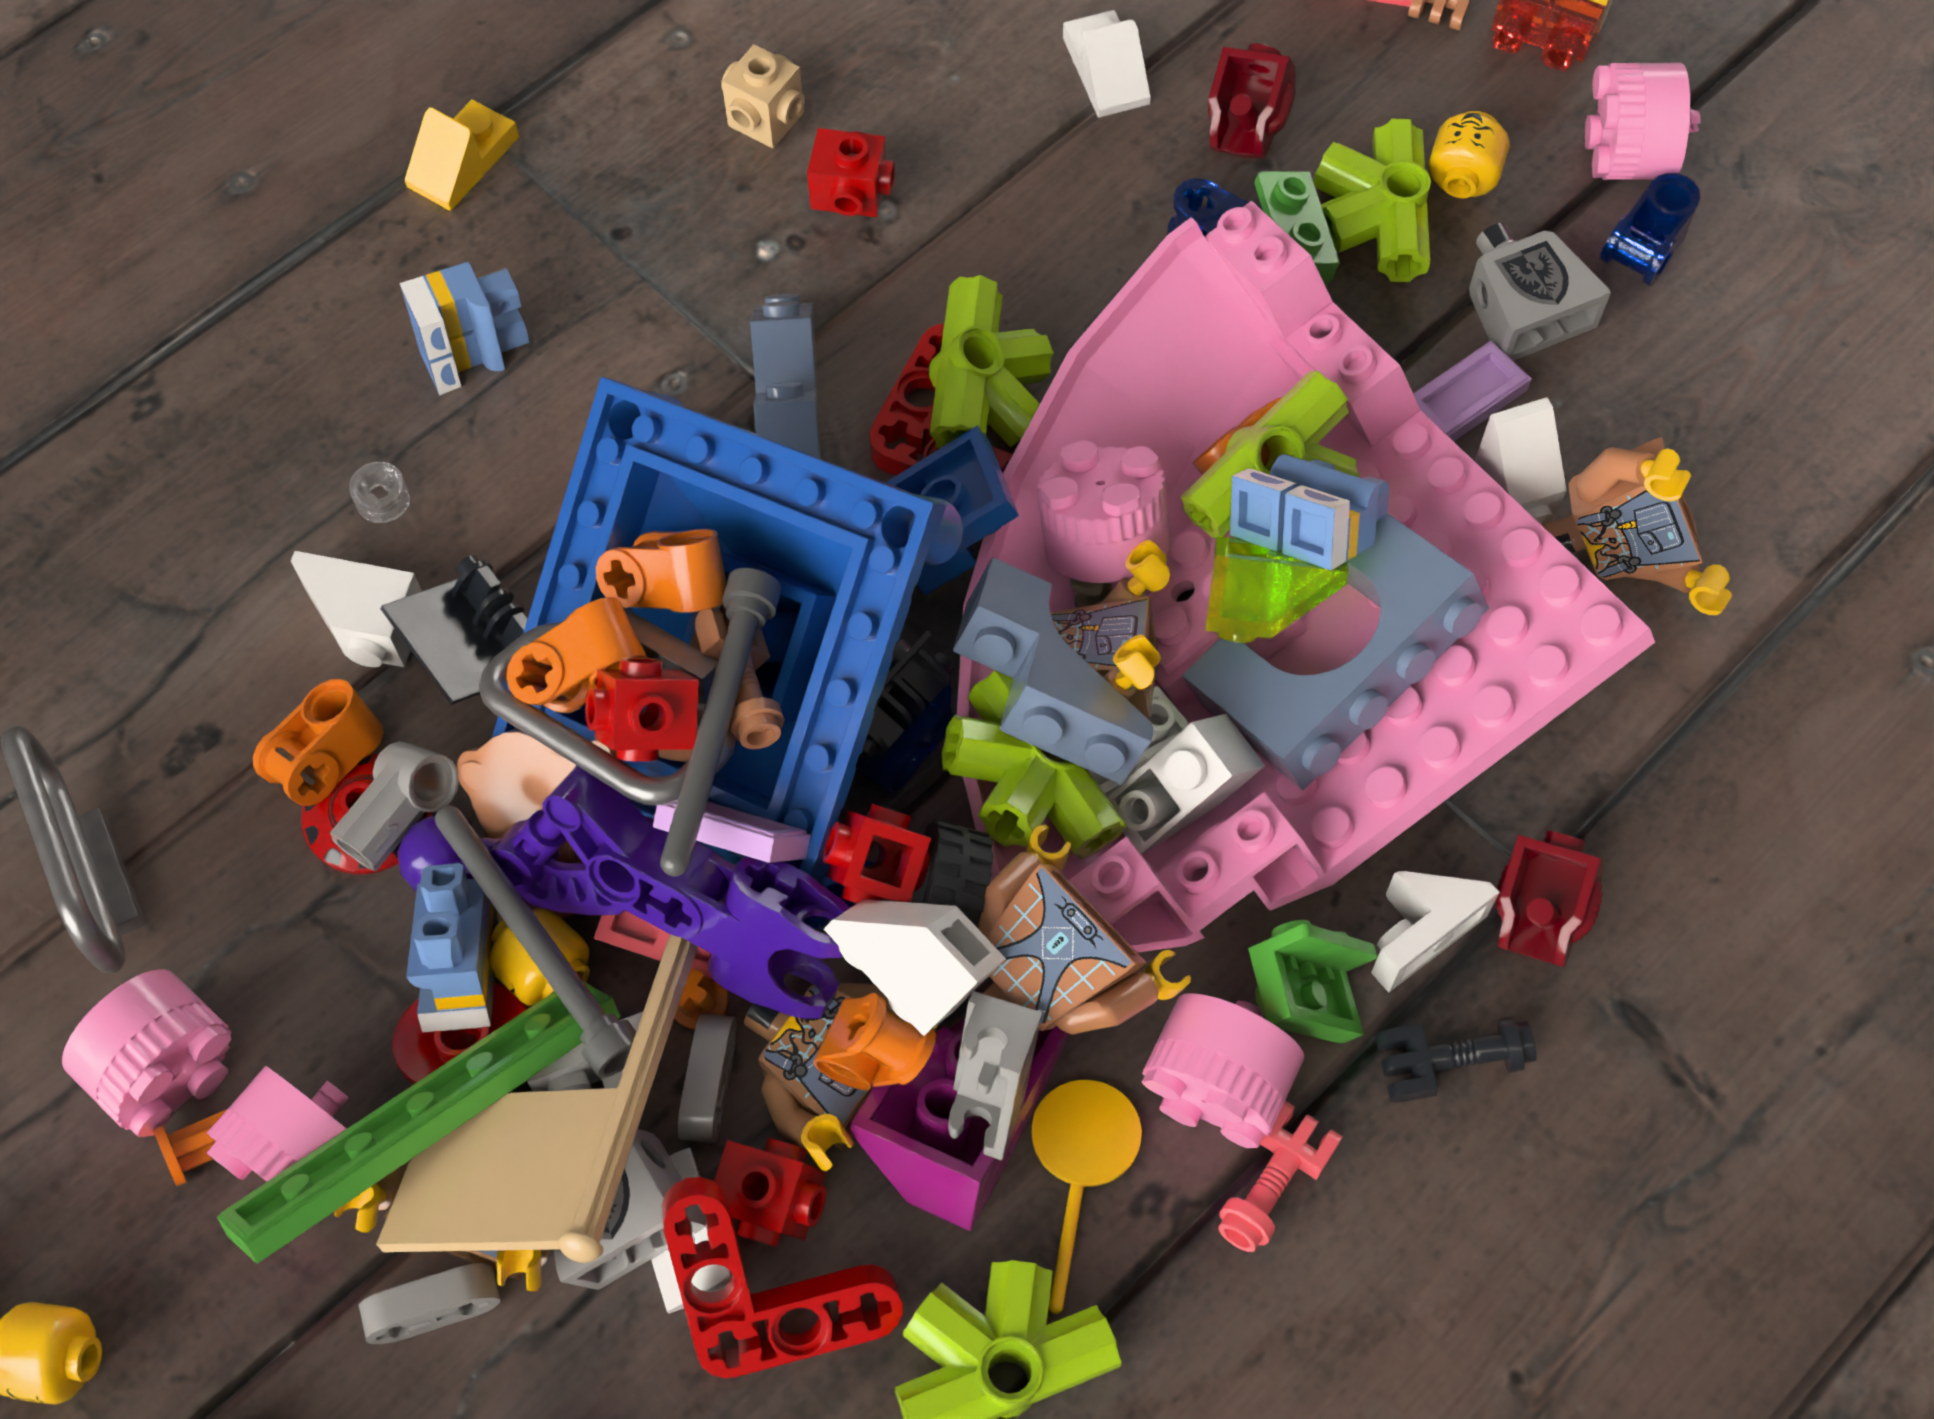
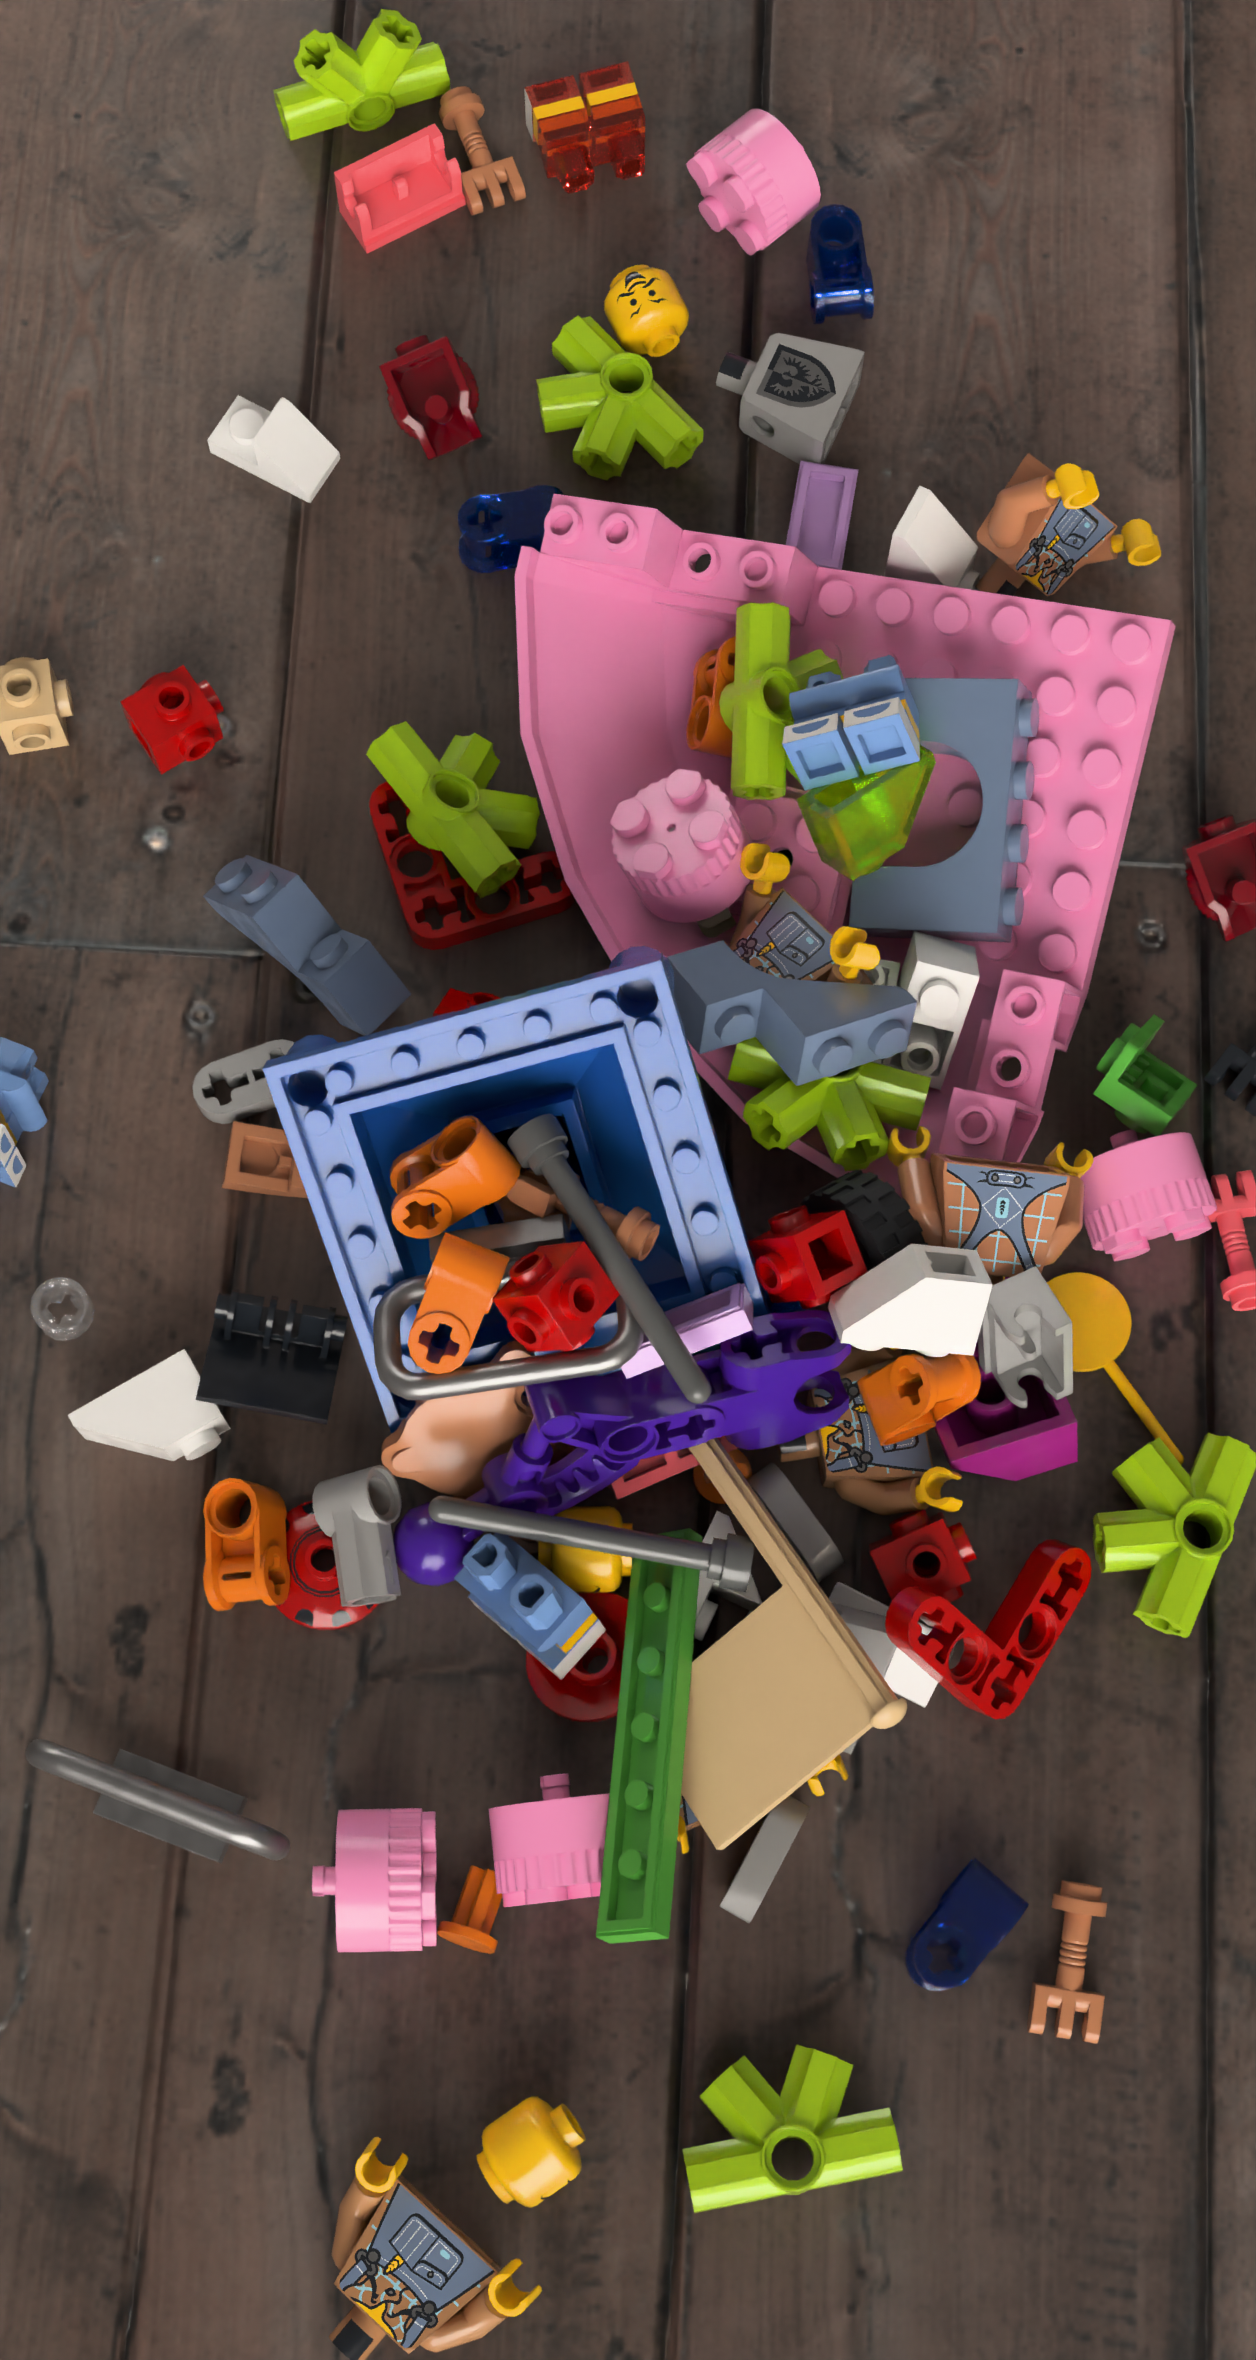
camera: 45 degrees left, 10 degrees up
(971, 481) = (542, 931): blue plate -> none
(1295, 207) = (574, 471): bright green bracket -> none
(1435, 916) = (1173, 957): white slope -> none

